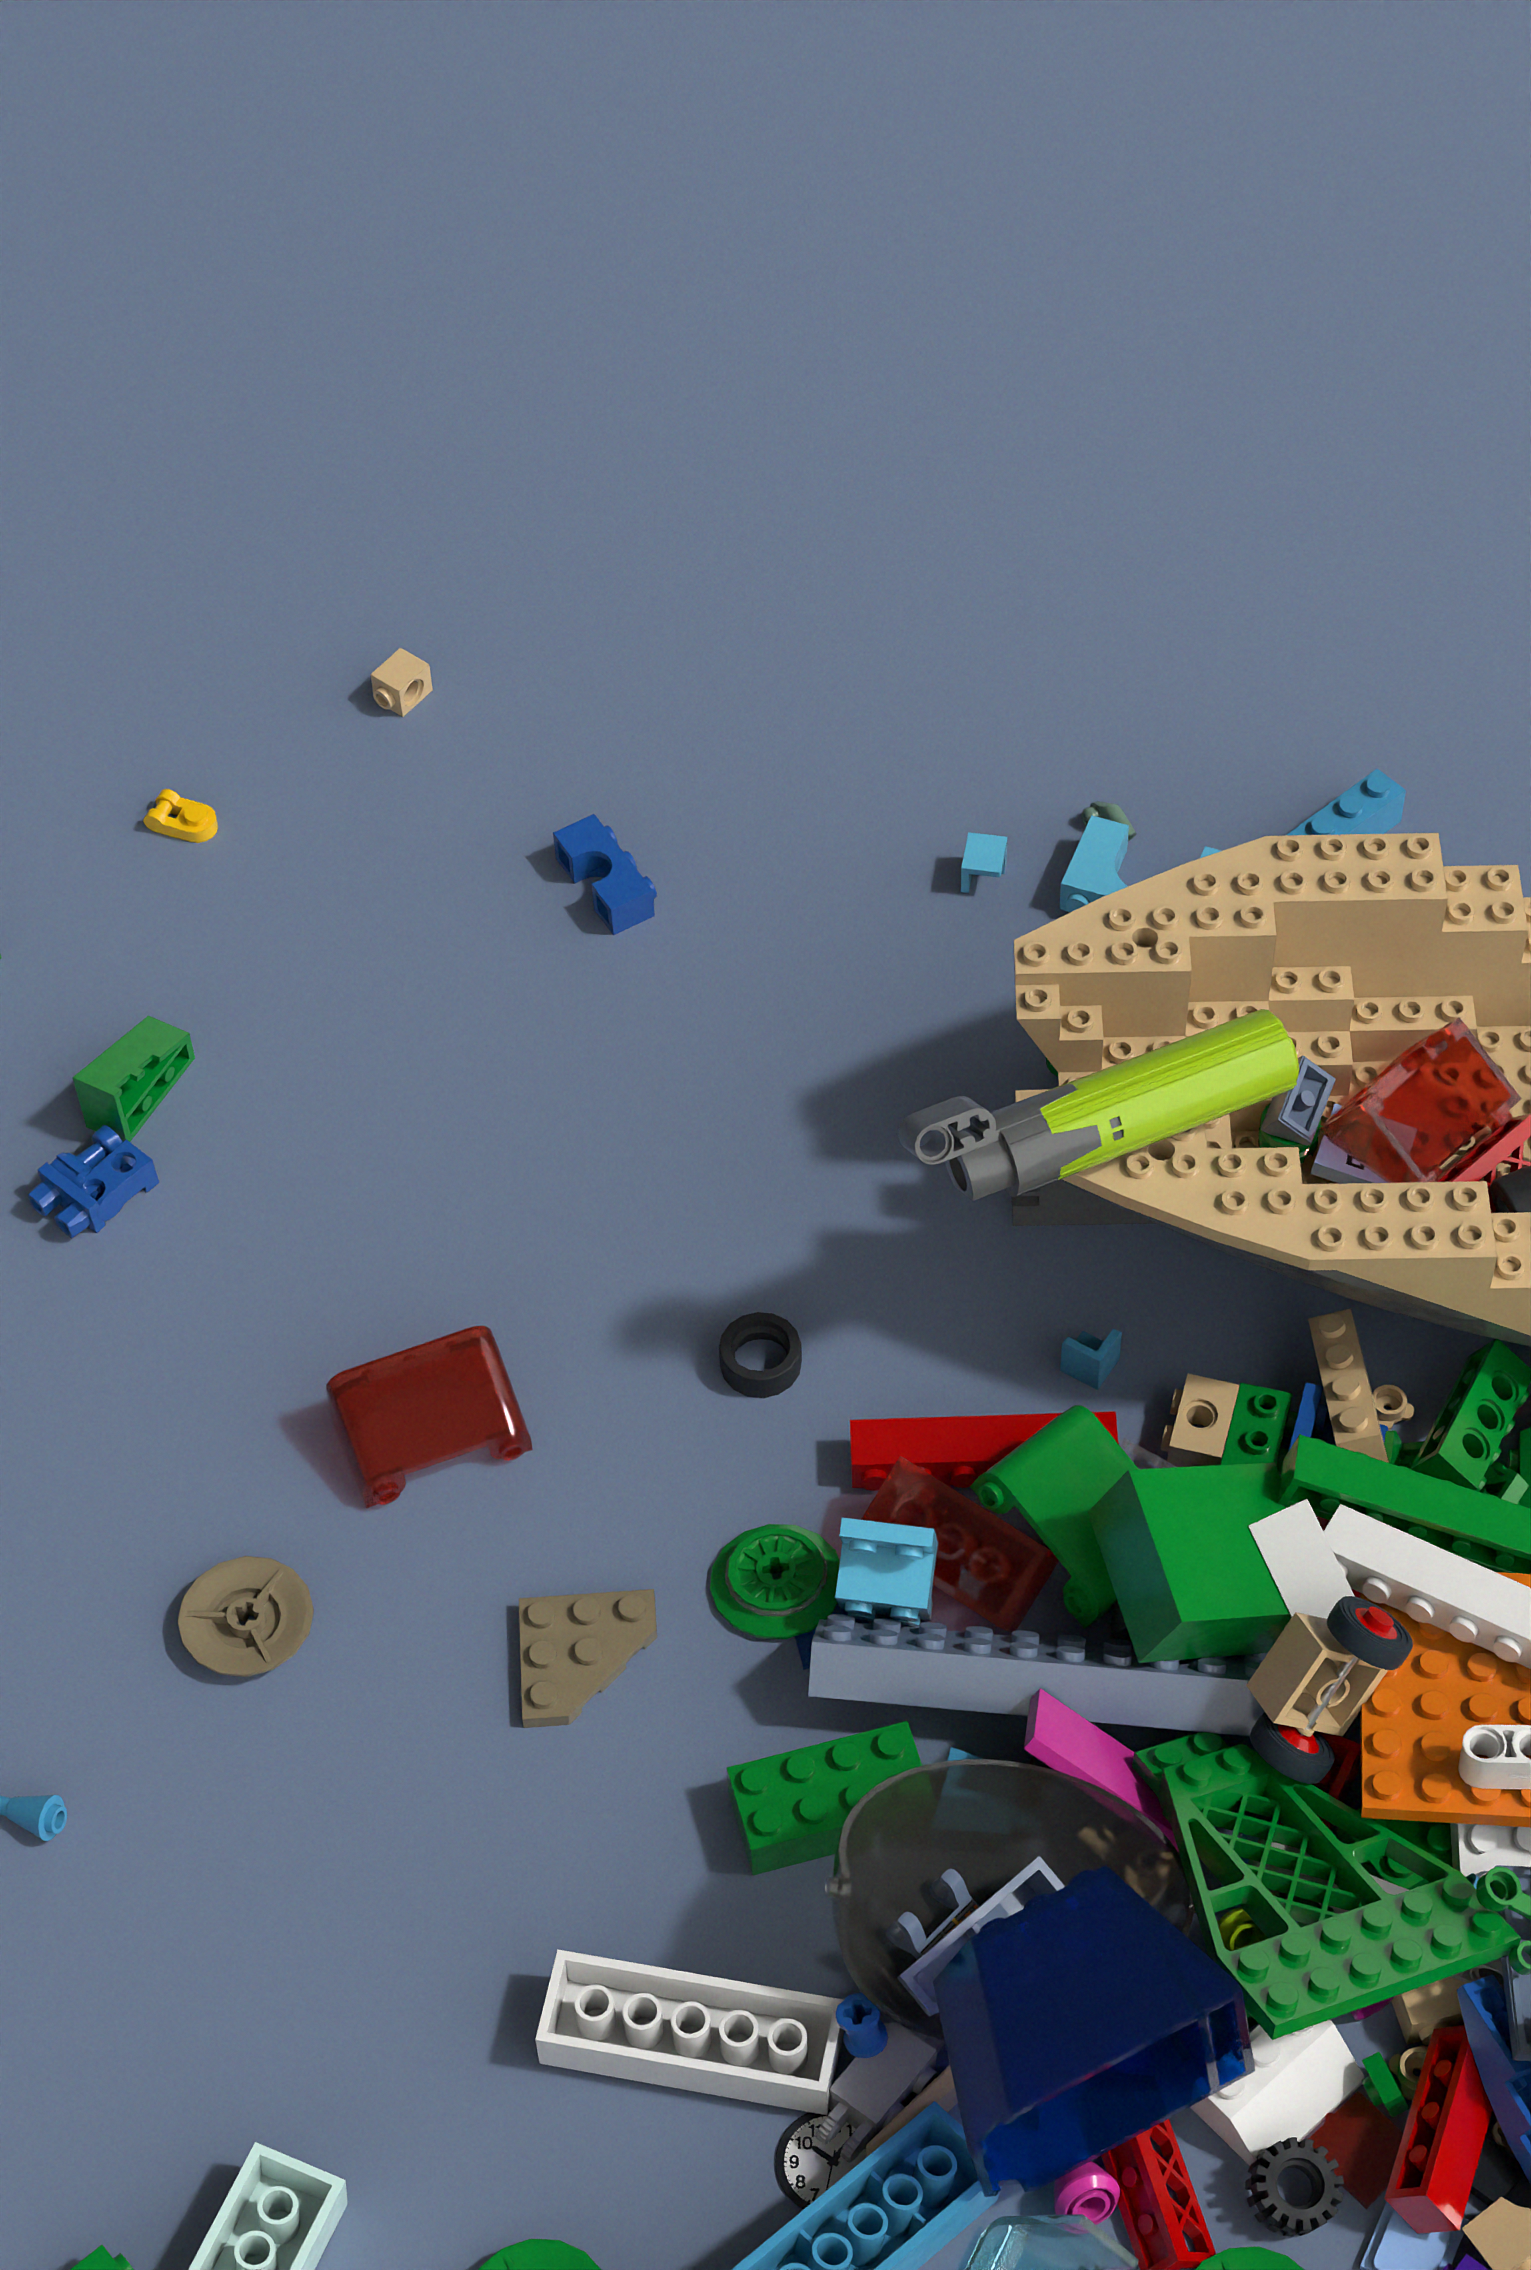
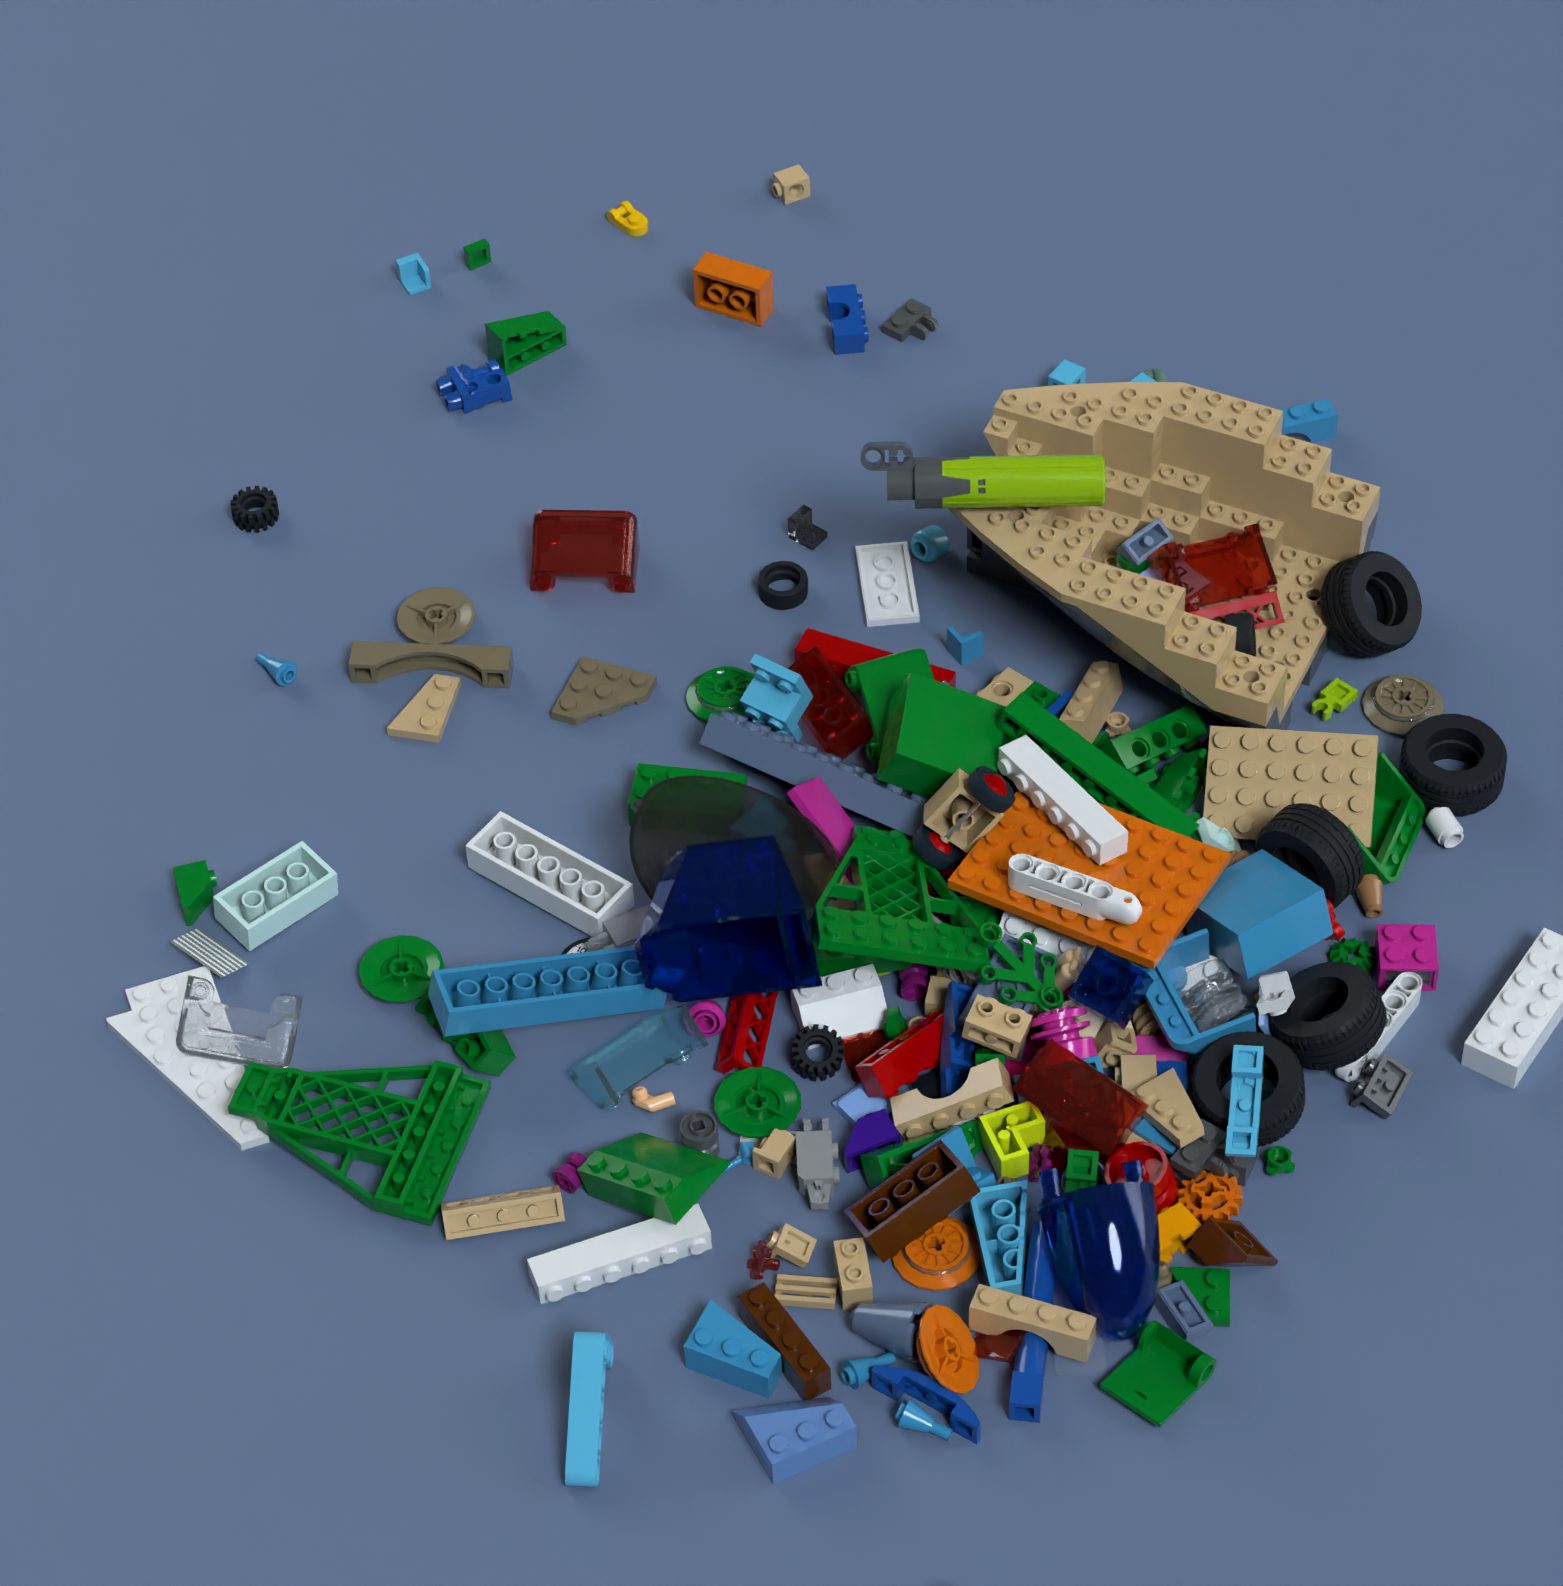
camera: 25 degrees right, 5 degrees down
(193, 1735) = (381, 660): none -> dark tan arch
(319, 1793) = (428, 711): none -> tan wing
(415, 882) = (733, 289): none -> orange brick
(699, 842) = (912, 320): none -> dark grey hinge
(741, 1249) = (803, 531): none -> clear smoke panel
(864, 2032) = (632, 891): blue bush -> none
(911, 1293) = (887, 584): none -> white tile
(940, 1205) = (930, 543): none -> medium azure head
(1301, 1560) = (987, 748): white sticker -> none

